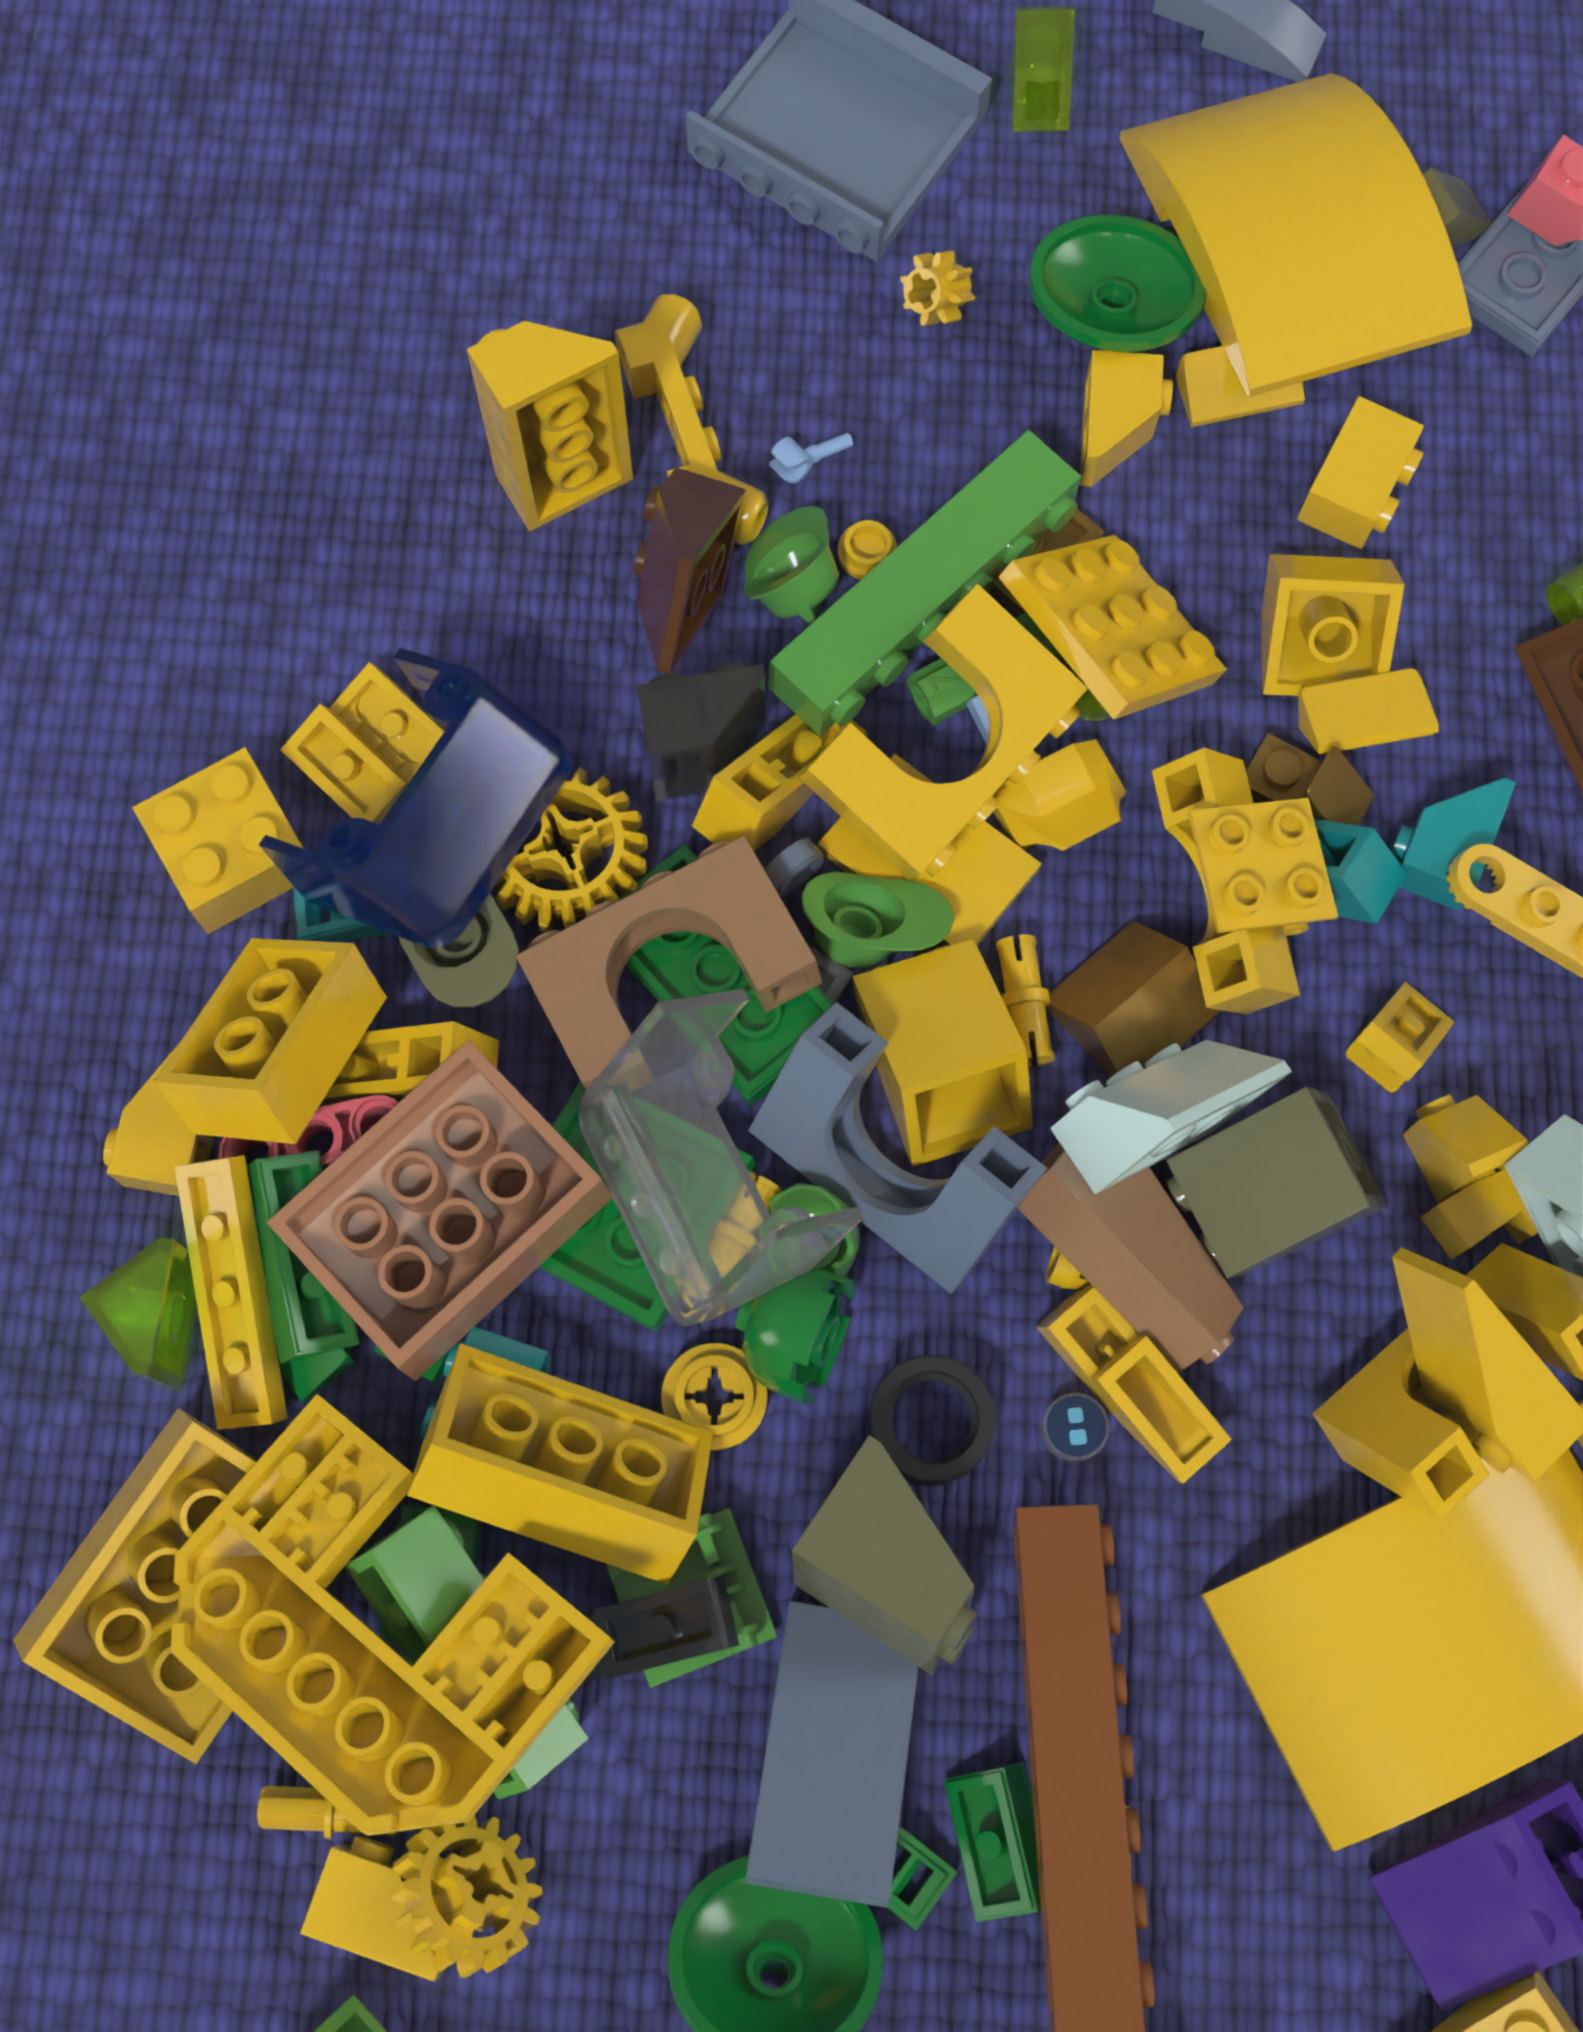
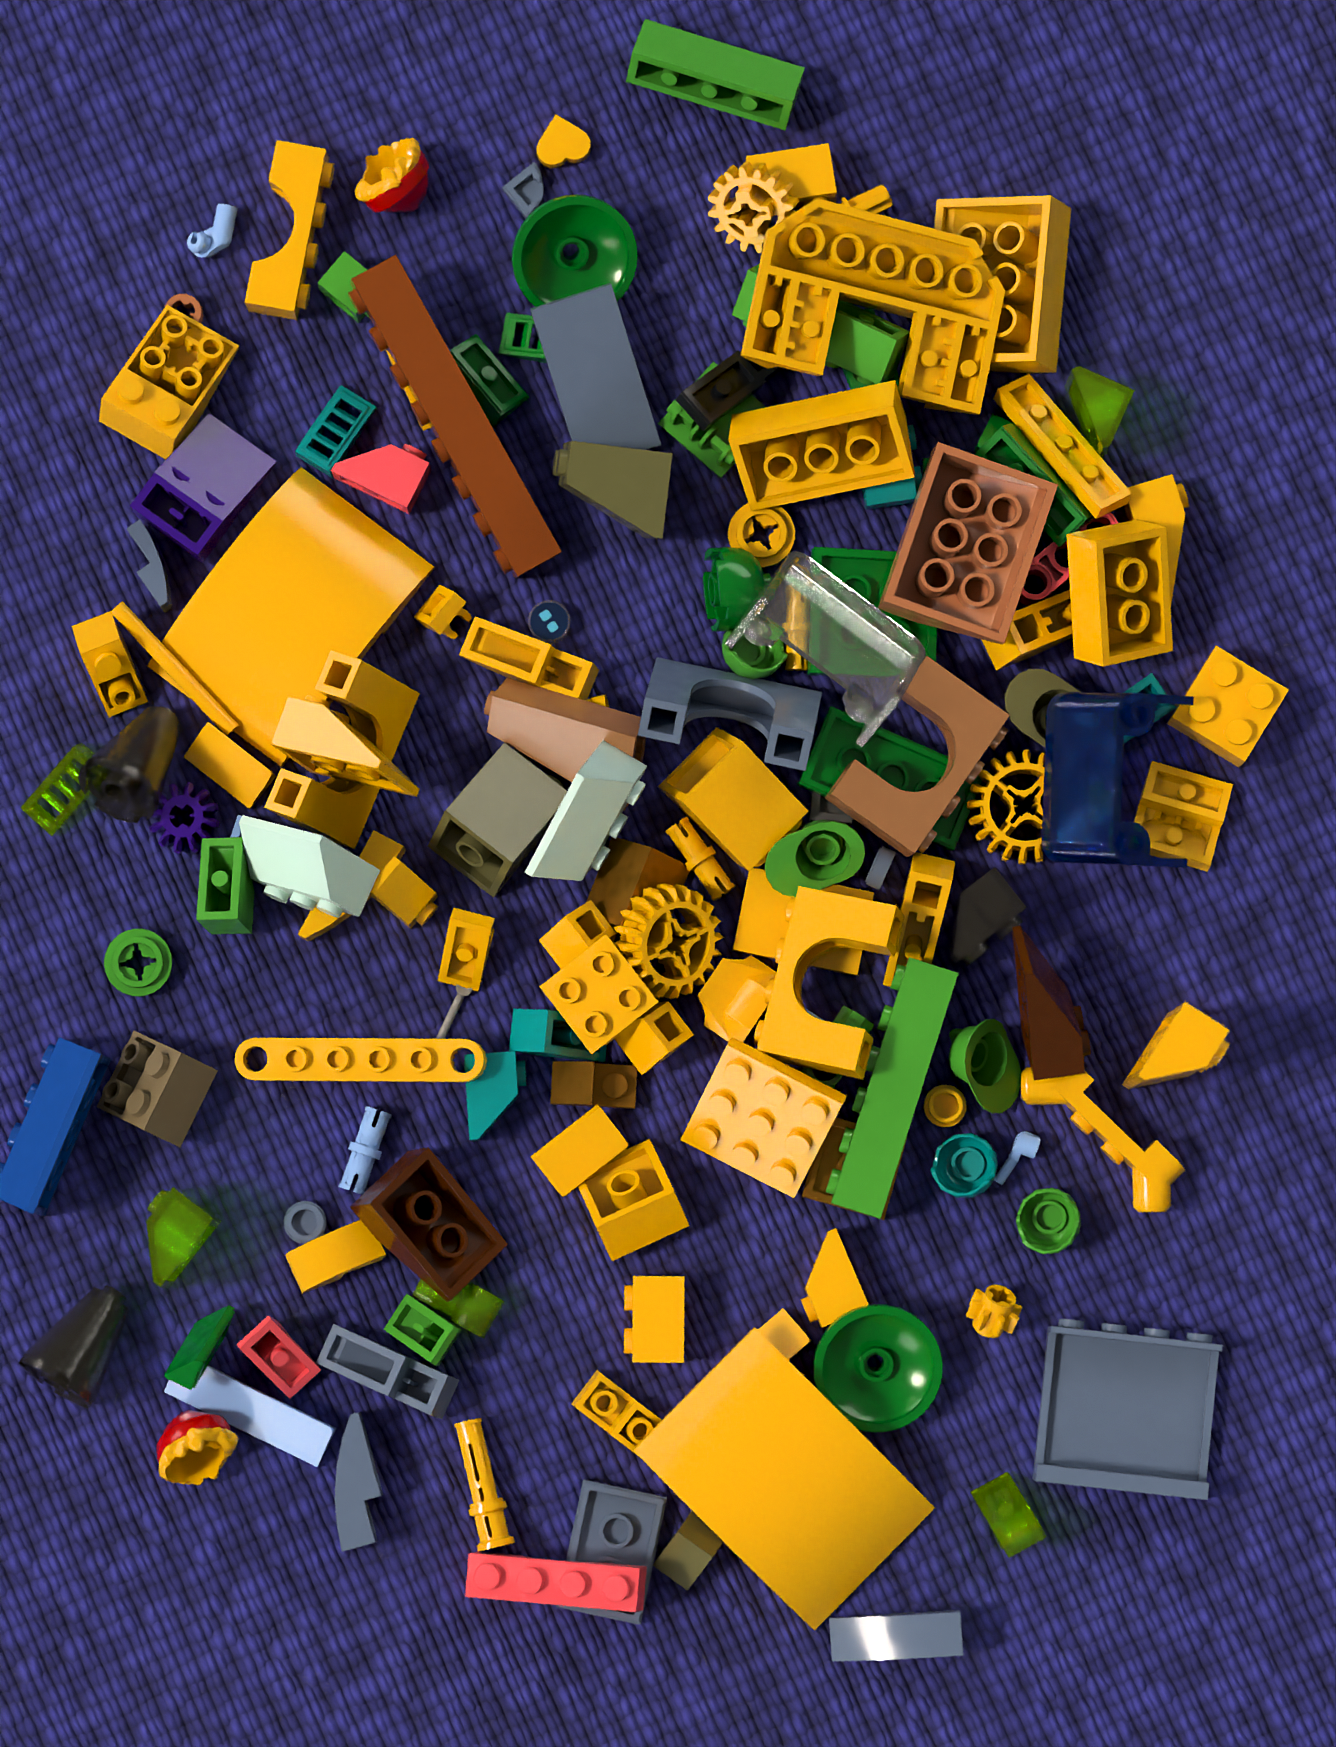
camera: 155 degrees right, 10 degrees up
(815, 350) = (1048, 1220): none -> bright green hair
(884, 459) = (964, 1165): none -> teal hair
(976, 1397) = (629, 550): black tyre -> none
(1128, 901) = (681, 948): none -> yellow gear
(1213, 1764) = (387, 474): none -> coral slope
(1226, 1519) = (441, 610): none -> yellow tile
(1297, 1887) = (318, 460): none -> teal slope
(1453, 398) = (615, 1411): none -> yellow slope
(1495, 938) = (461, 993): none -> light grey hinge

